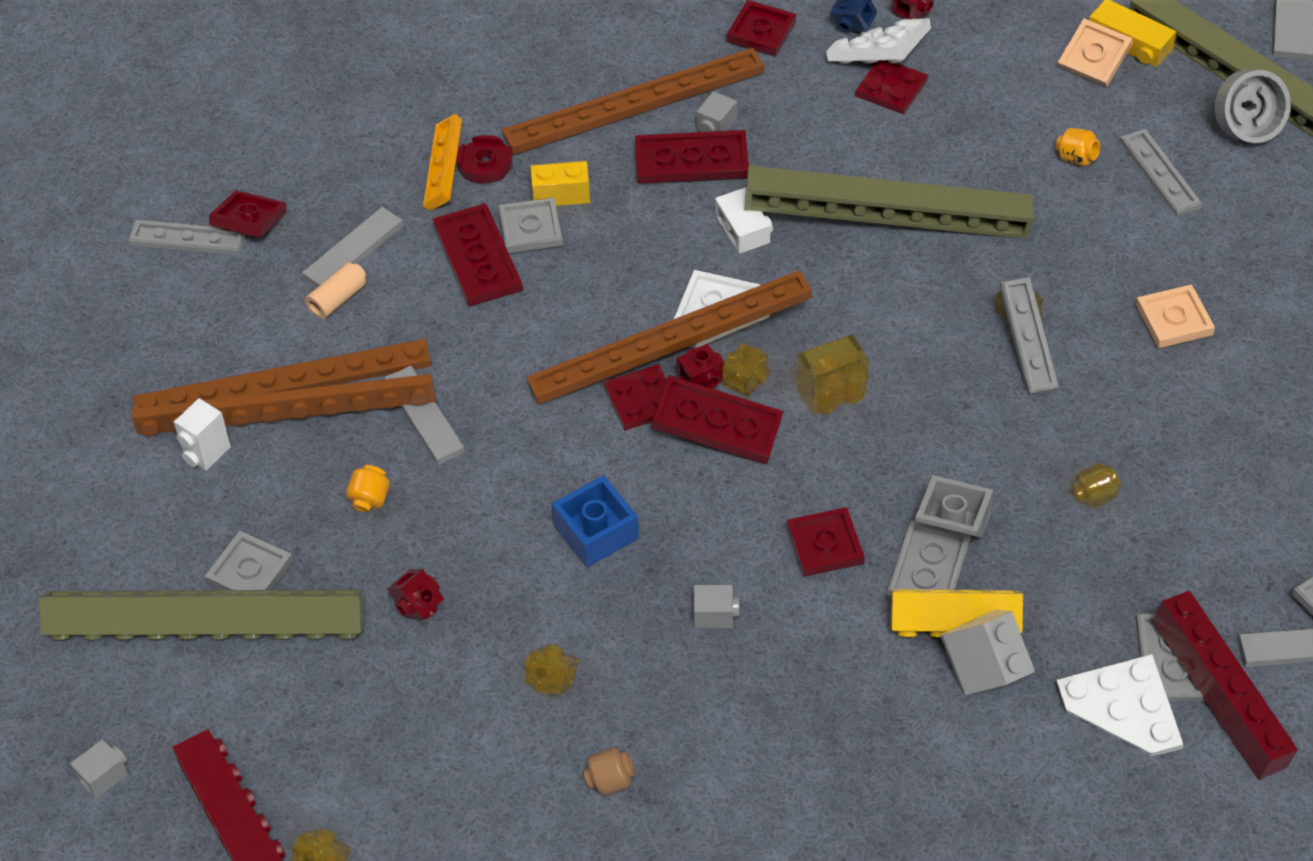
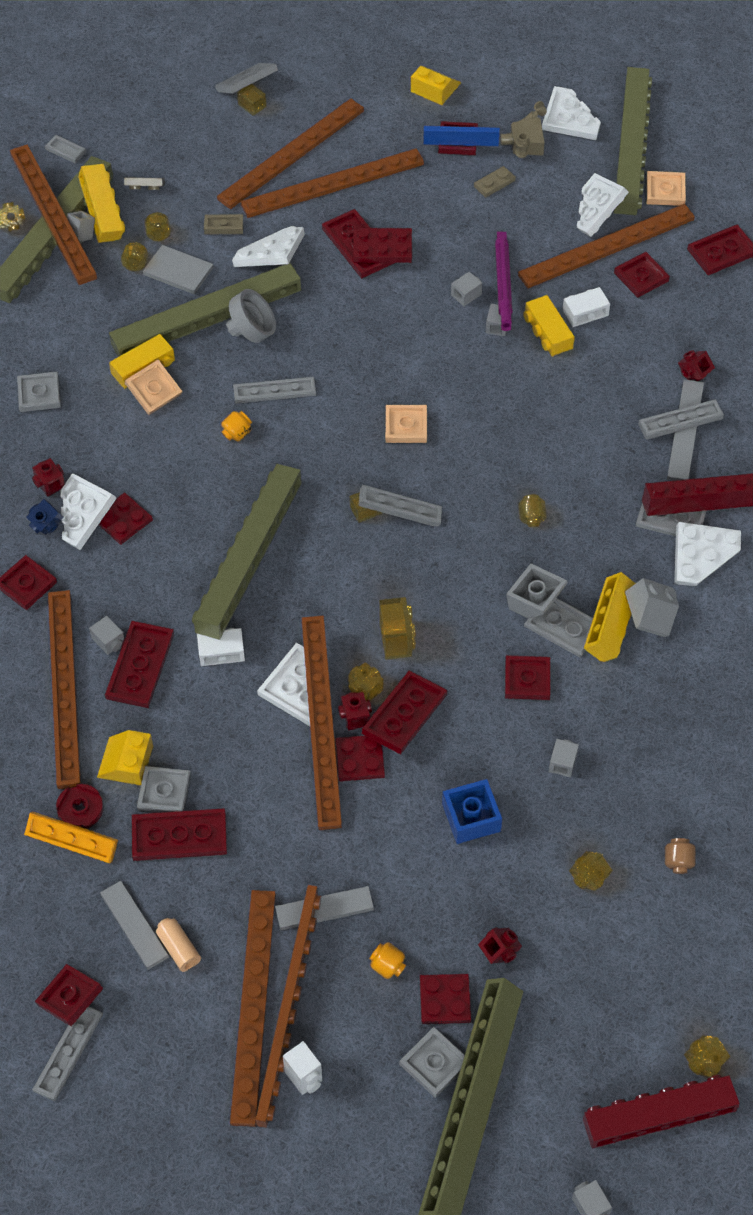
camera: 75 degrees left, 5 degrees up
(337, 561) = (445, 999): none -> dark red plate

